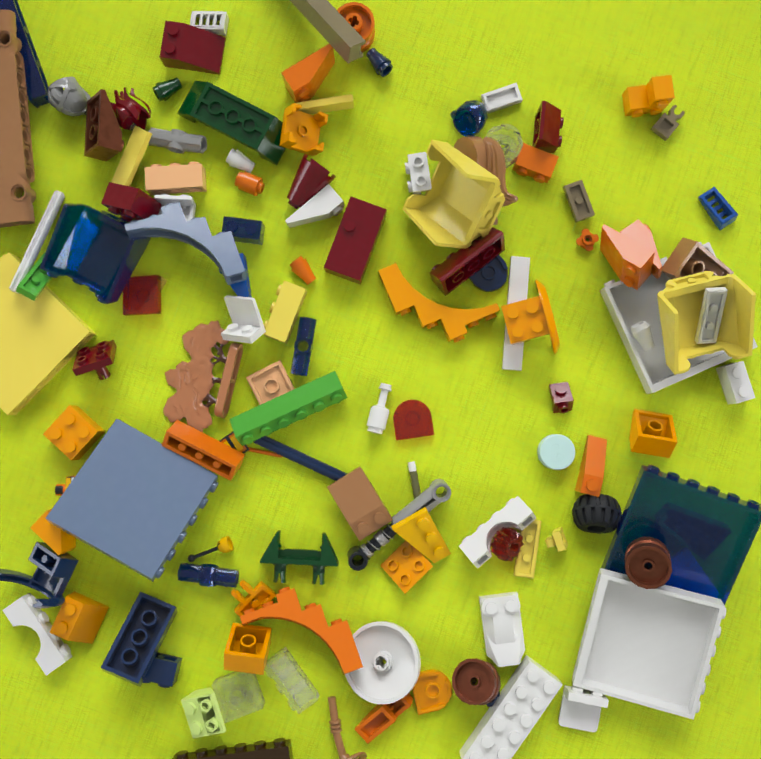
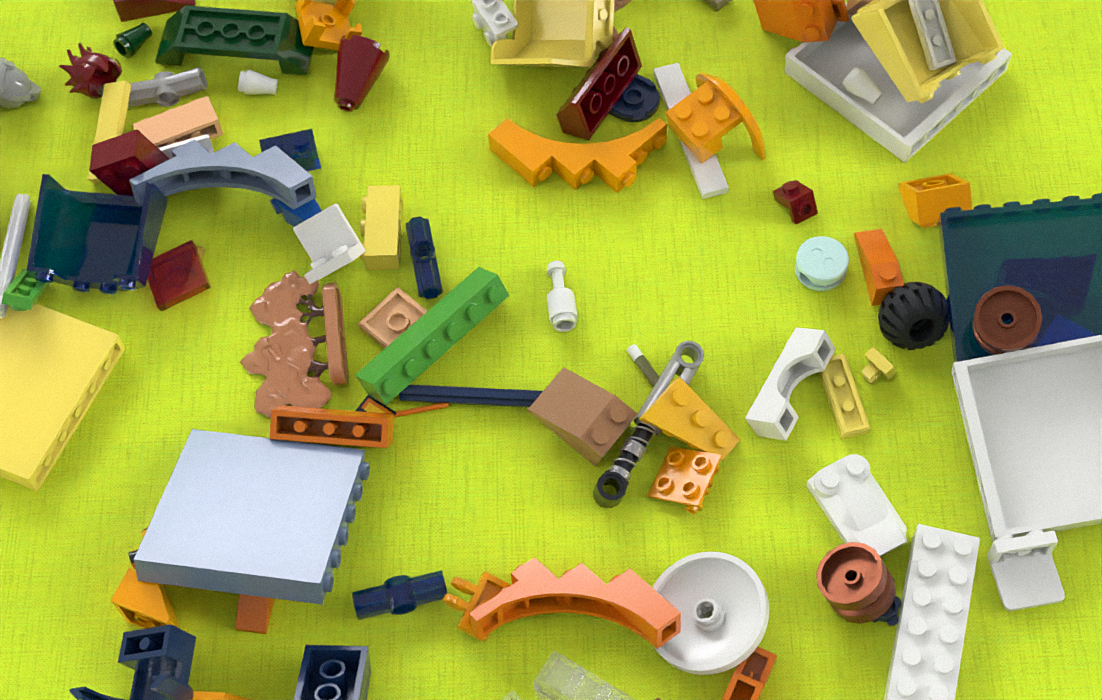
camera: 20 degrees left, 25 degrees down
(74, 432) = (134, 474): light orange brick -> none
(95, 359) = (138, 368): dark red plate -> none
(102, 131) = (62, 99): copper slope -> none
(224, 545) = (407, 547): hinge -> none
(247, 648) = (499, 664): light orange brick -> none
(249, 183) = (278, 102): orange brick -> none
(302, 270) = (386, 172): orange cone -> none
(315, 558) = (566, 509): dark green hose -> none
(319, 207) = (380, 99): white slope -> none
(355, 240) = (443, 117): dark red brick -> none
(412, 420) = (611, 296): clear red tile -> none
(431, 691) = (799, 637): light orange tile -> none
(507, 544) = (811, 391): clear red gear -> none
(581, 241) = (740, 22): orange plate -> none
(735, 382) = (1008, 105): white brick -> none

